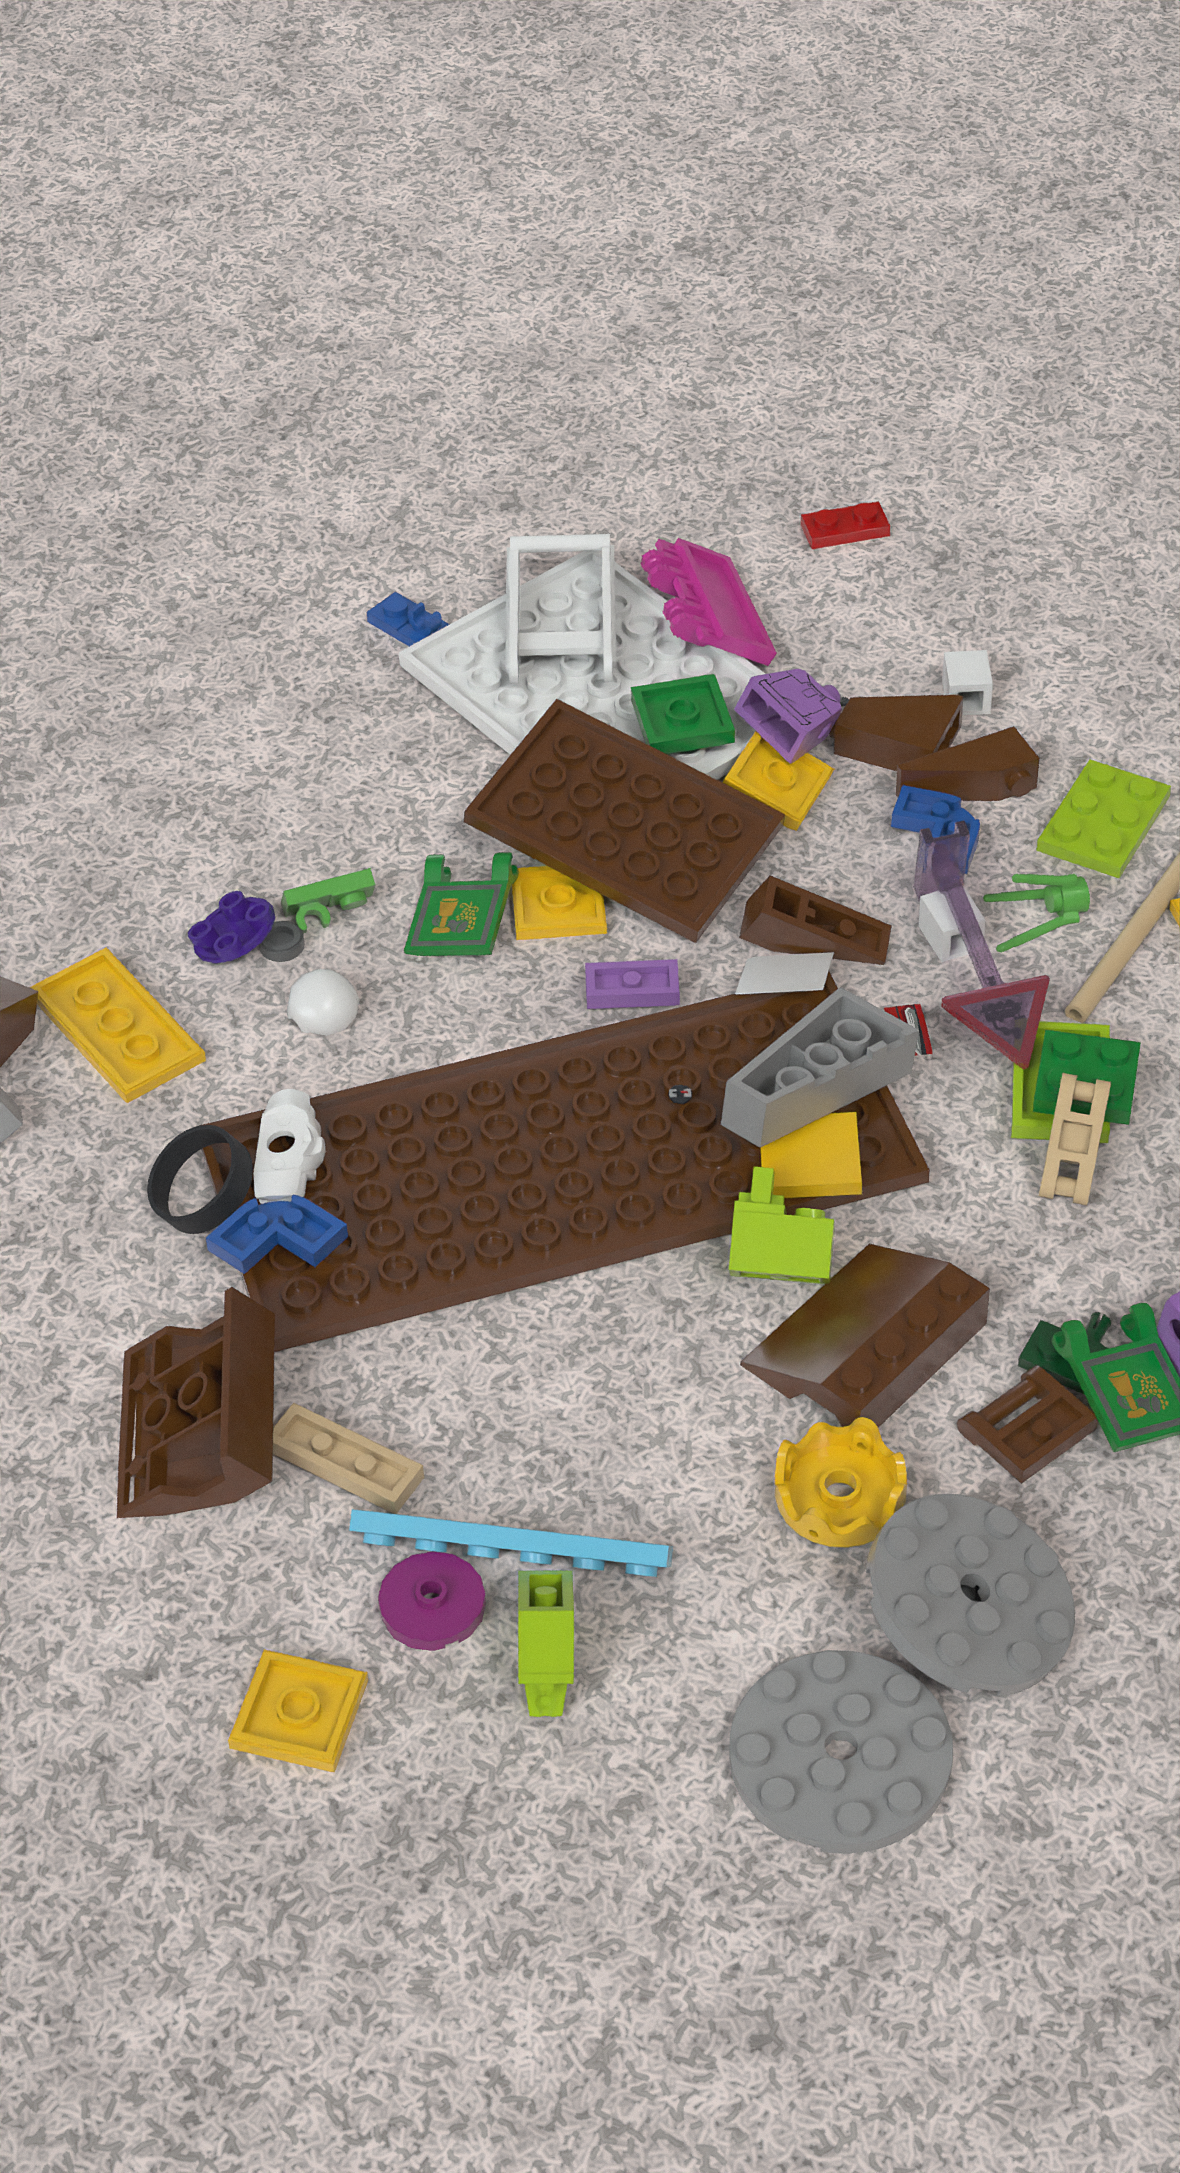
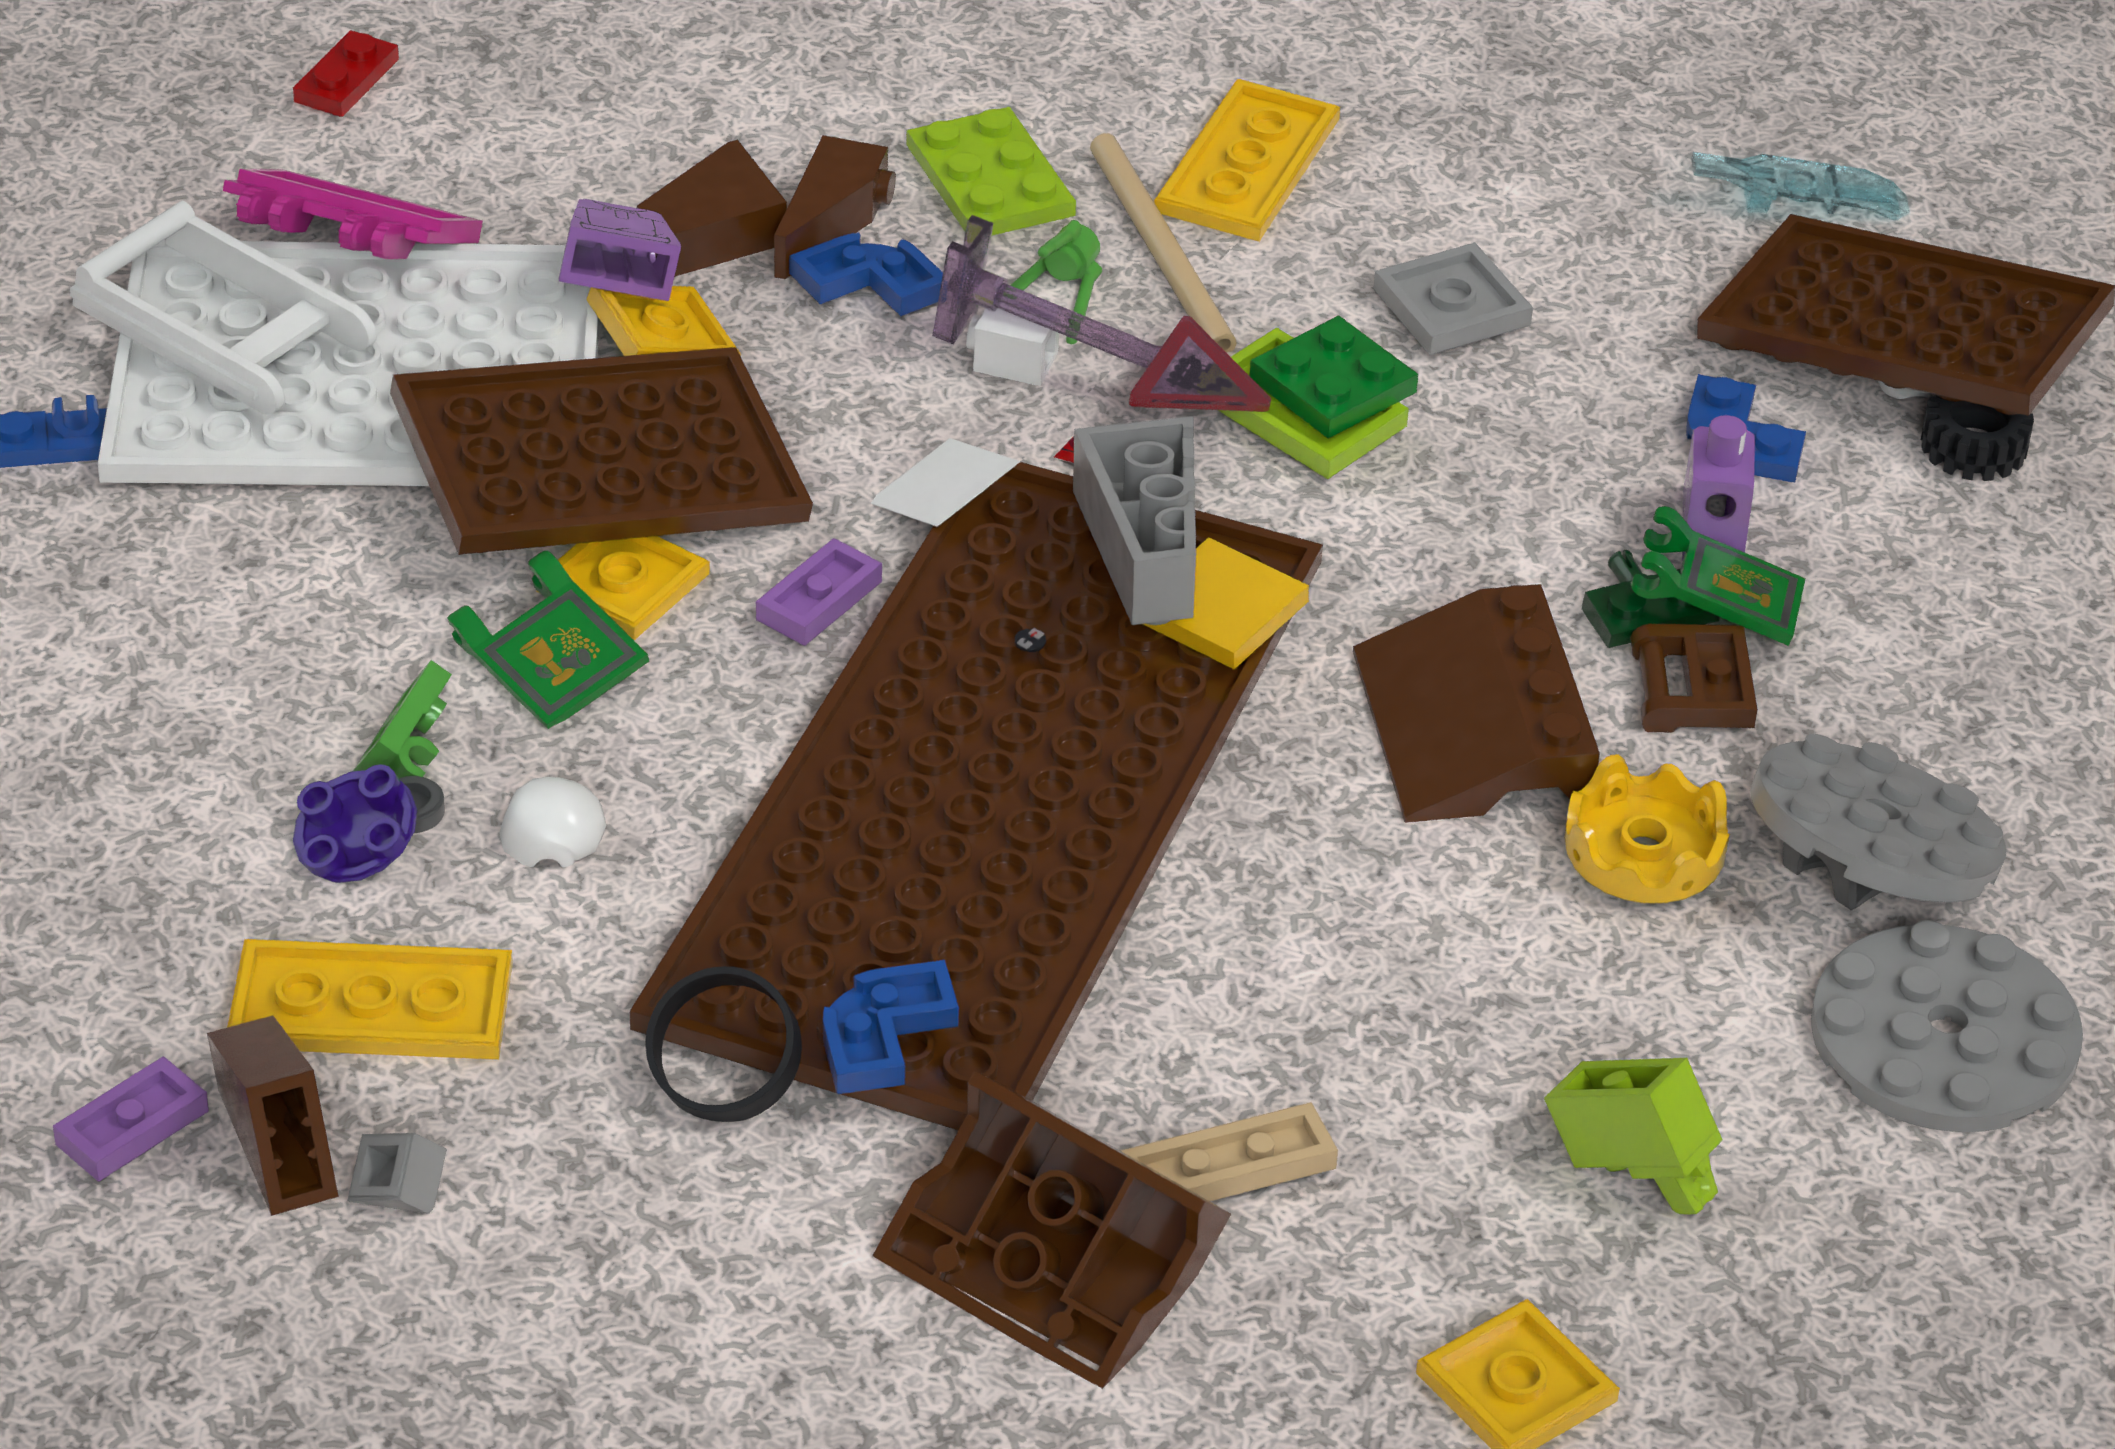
camera: 55 degrees left, 5 degrees down
(286, 1173) = (800, 970): white piece -> none
(435, 1621) = (1483, 1227): magenta plate -> none
(534, 1545) = (1454, 1111): medium azure plate -> none
(683, 714) = (503, 320): green plate -> none
(777, 1244) = (1303, 688): lime hinge -> none
(802, 922) = (895, 427): reddish brown slope -> none
(970, 677) = (697, 127): white brick -> none
(1074, 1139) = (1406, 428): tan plate -> none

